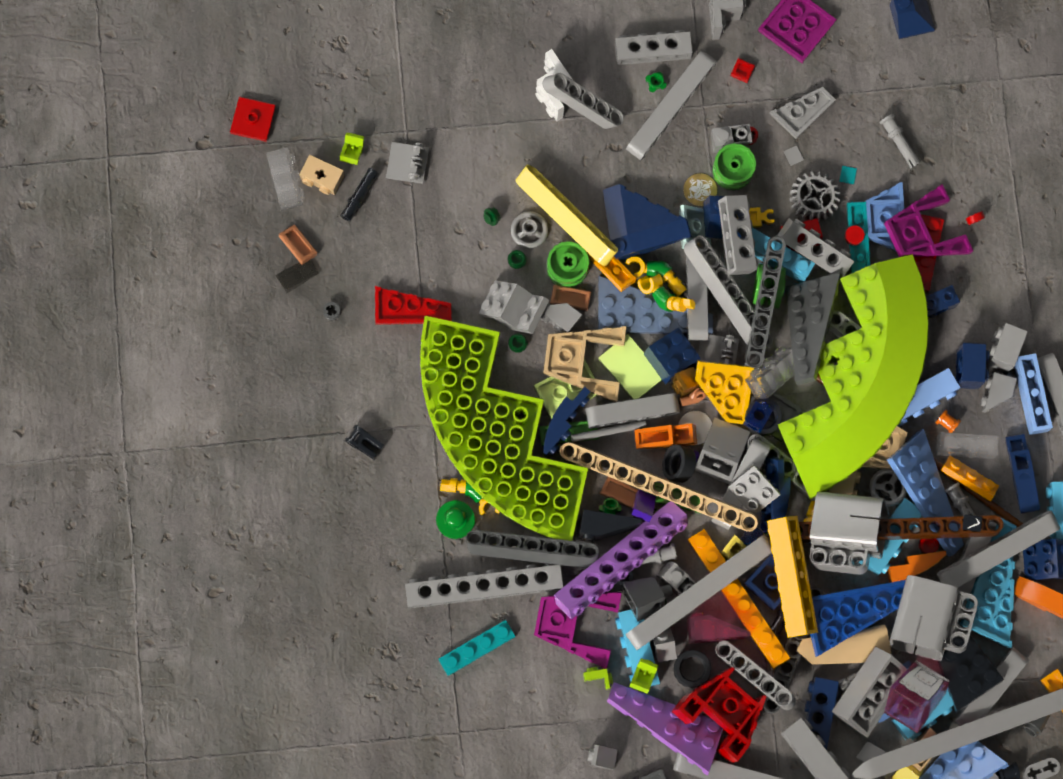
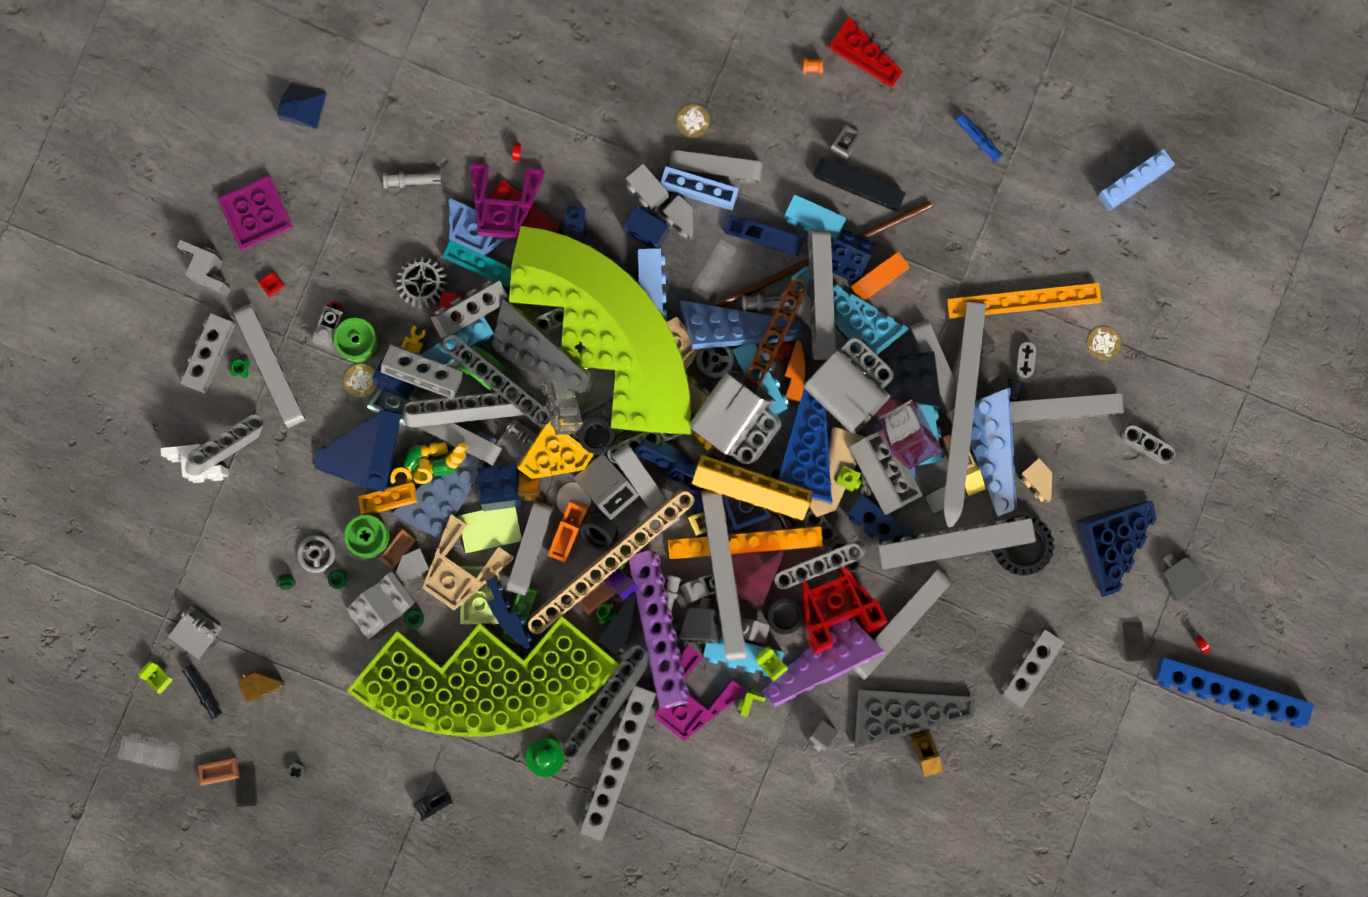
camera: 55 degrees left, 5 degrees up
(252, 119) = (78, 753): red plate -> none
(315, 167) = (154, 720): tan brick -> none
(388, 238) = (258, 685): none -> pearl gold slope
(403, 308) = (331, 701): red wing -> none
(454, 485) = (513, 742): yellow piece -> none
(476, 648) = (669, 797): teal plate -> none
(566, 215) = (321, 514): light yellow beam -> none
(608, 431) = (537, 578): light grey bar -> none
(693, 398) = (546, 485): nougat arm -> none
(752, 422) = (594, 449): clear blue brick -> none
(754, 490) = (658, 479): light grey hinge -> none
(793, 155) = (373, 280): light grey sticker -> none
(802, 113) = (339, 251): light grey wing -> none
(845, 662) = (849, 479): none -> lime bracket
(848, 175) = (417, 242): teal sticker -> none
(854, 235) = (475, 266): red tile -> none
(948, 421) = (684, 275): orange bush -> none
(969, 478) = (743, 283): light orange plate -> none
(972, 523) = (786, 305): black sticker -> none

